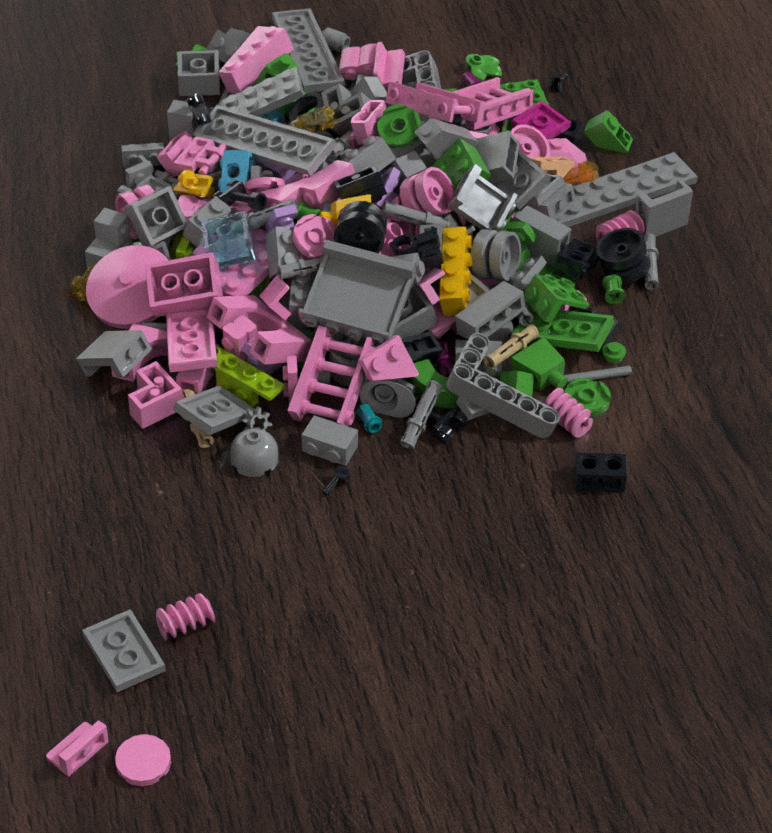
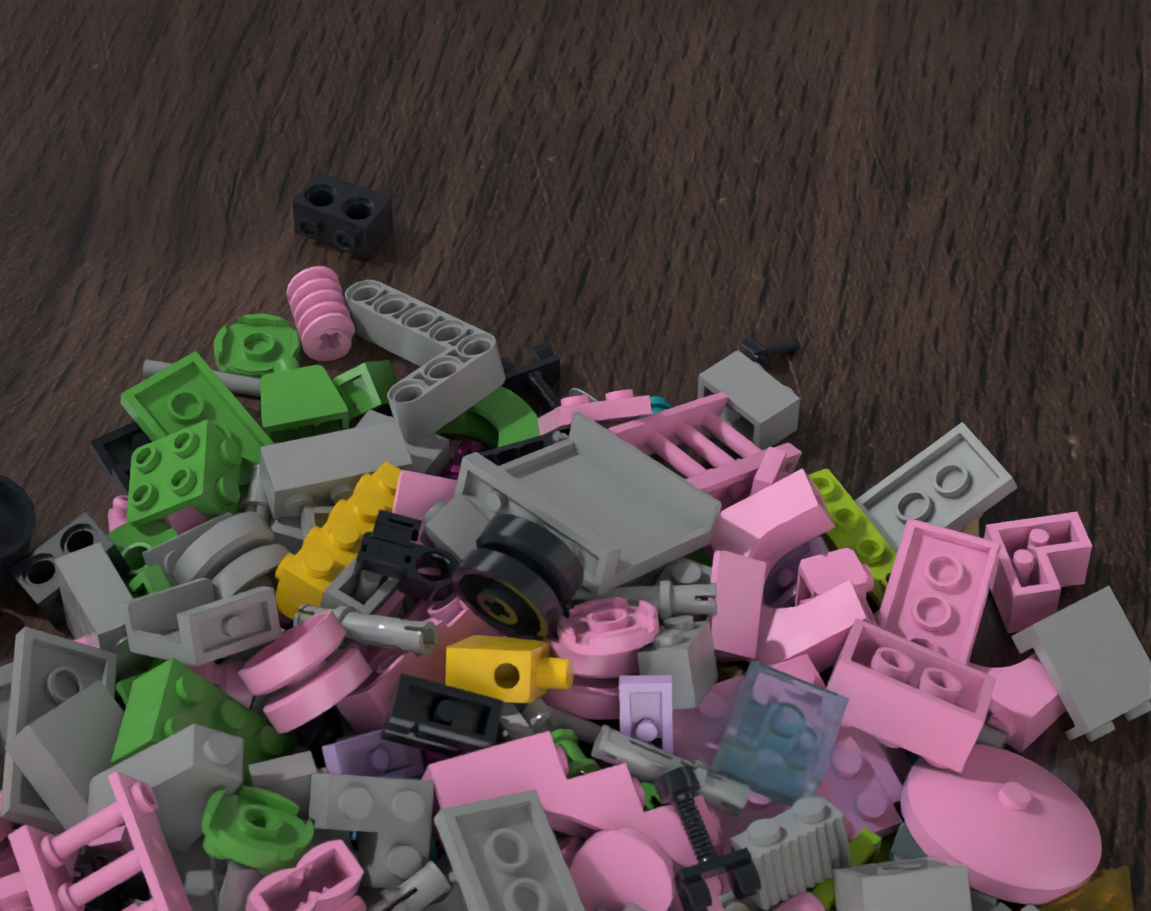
camera: 155 degrees left, 0 degrees up
(183, 615) = (1104, 213): bright pink piece -> none
(249, 420) = (861, 468): light grey gear -> none
(254, 452) = (885, 429): light grey cylinder -> none
(417, 422) = (583, 372): light grey pin -> none
(525, 336) = (335, 415): tan pin -> none
(612, 285) = (49, 501): bright green bush -> none

